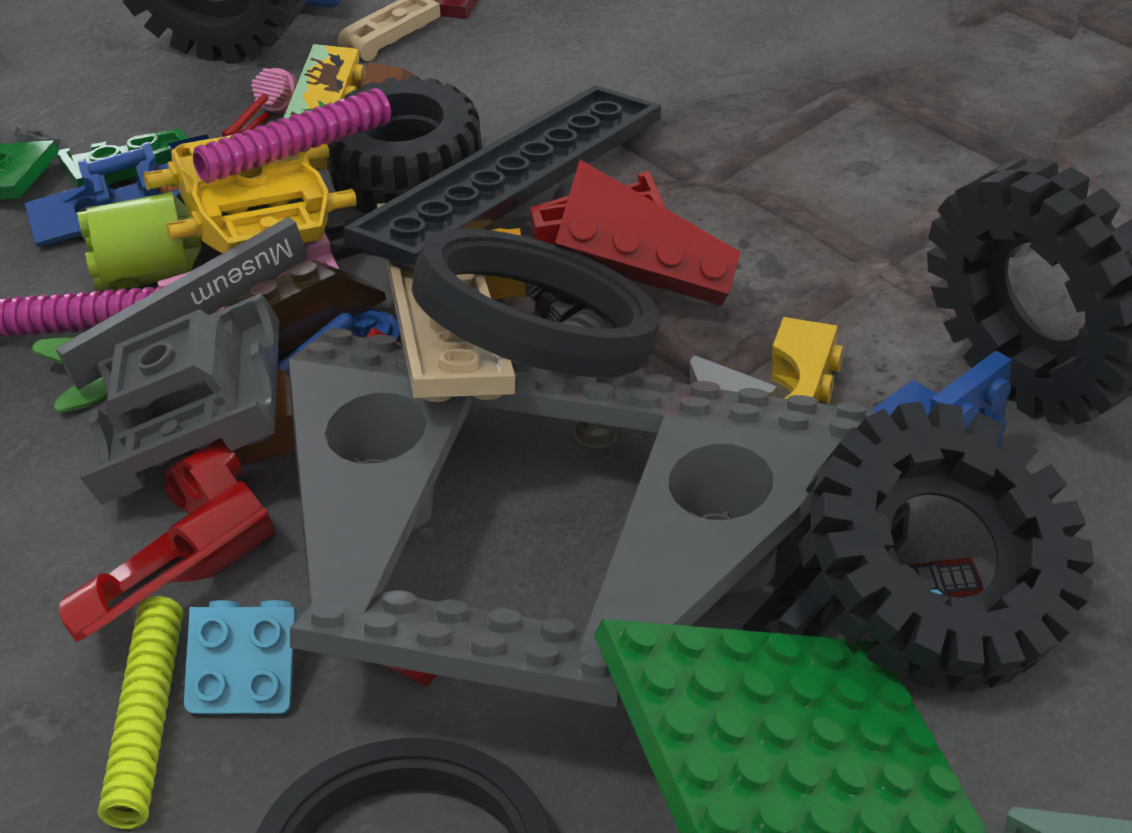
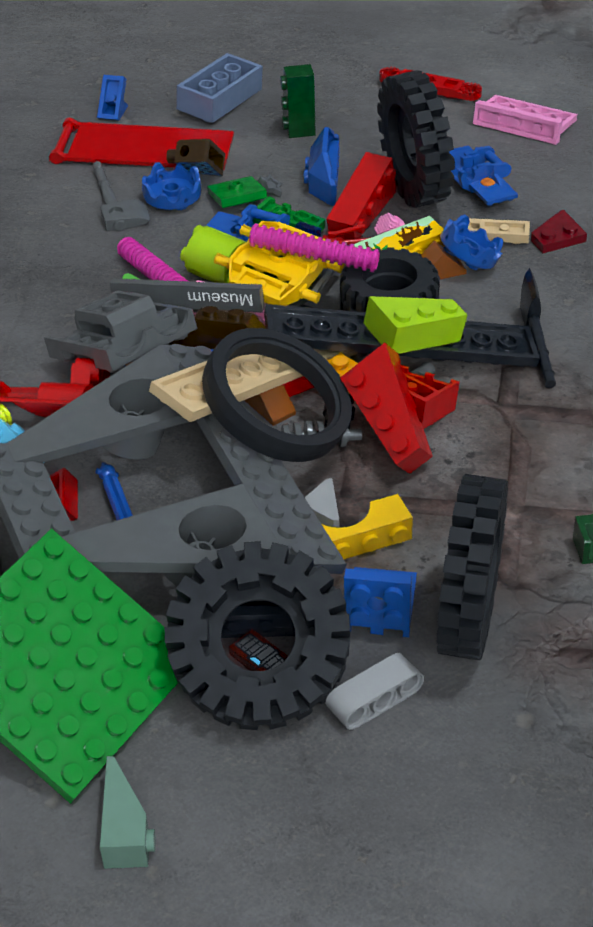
camera: 50 degrees right, 0 degrees up
(85, 77) = (323, 166): none -> blue wedge
(192, 72) = (364, 195): none -> red wedge
(400, 49) = (471, 246): none -> blue plate
(497, 584) = (114, 491): none -> blue wheel
(525, 140) = (414, 322): none -> lime wedge
(568, 62) = (531, 312): none -> black piece
(1090, 486) = (374, 691): none -> light grey beam

